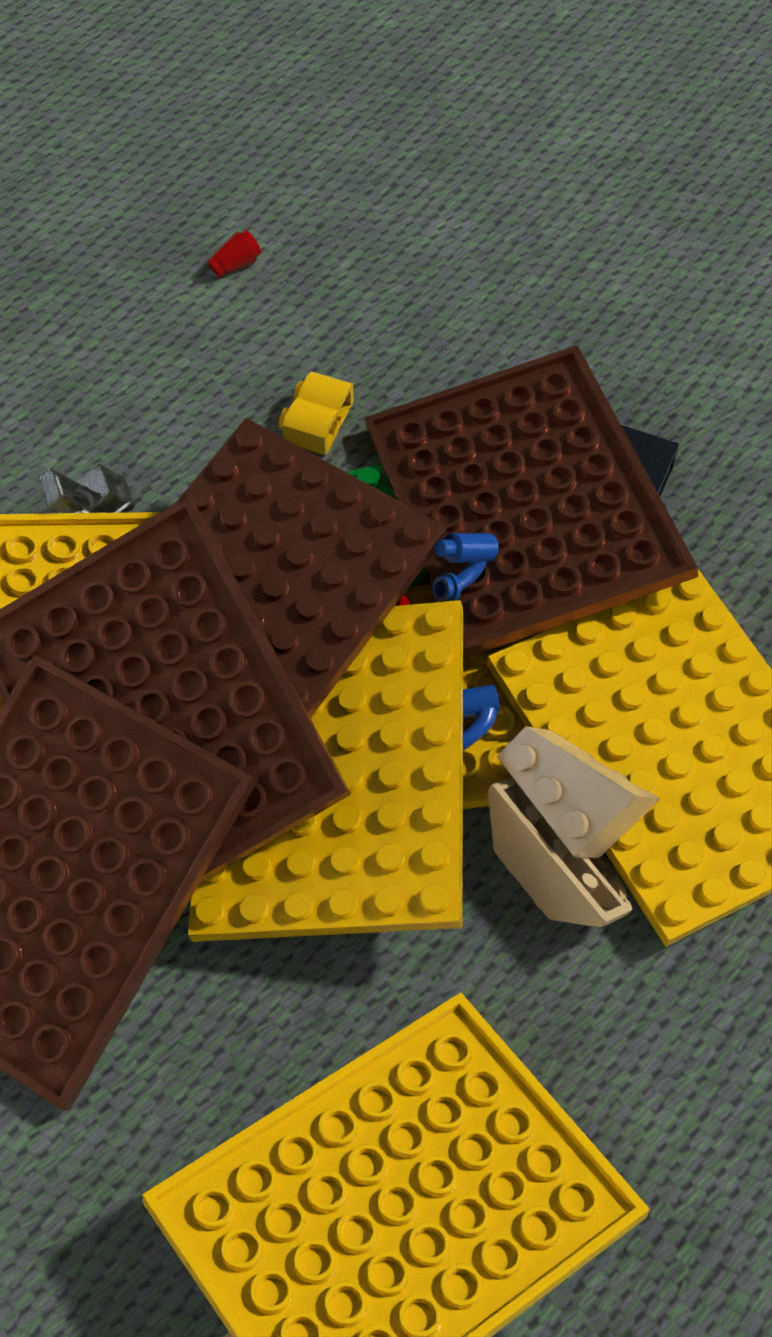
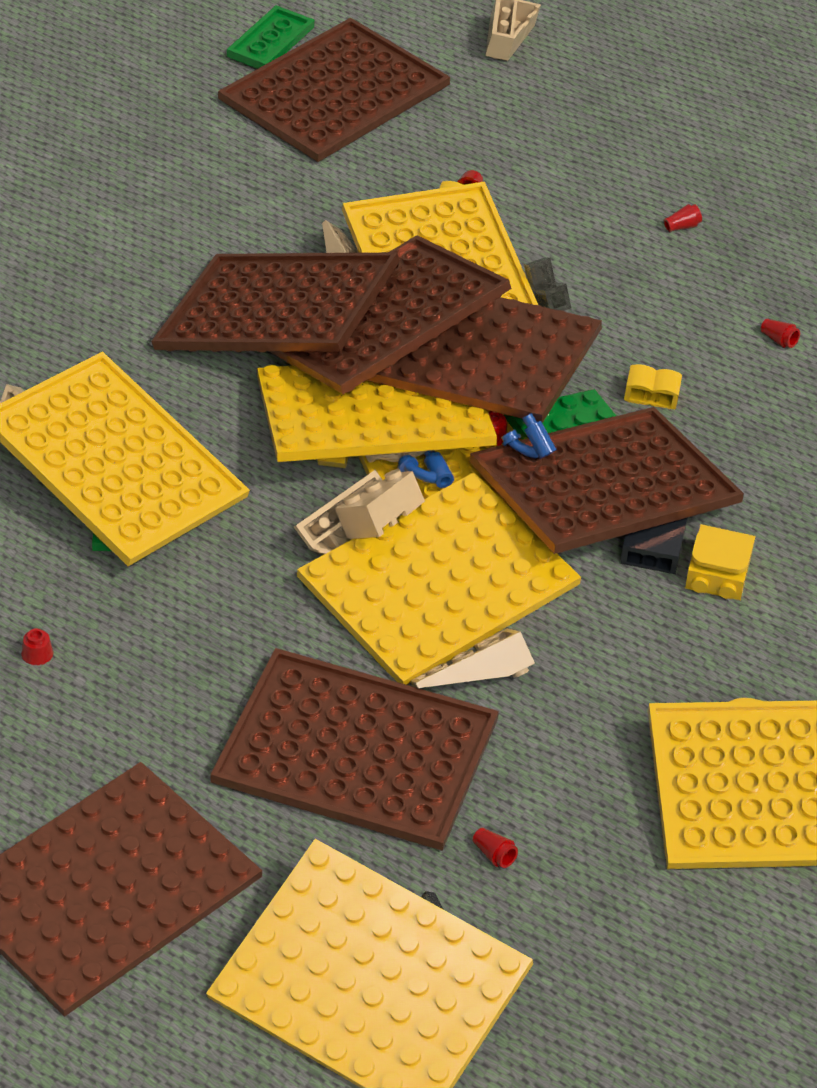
camera: 75 degrees right, 15 degrees down
(678, 402) = (720, 562): none -> yellow brick

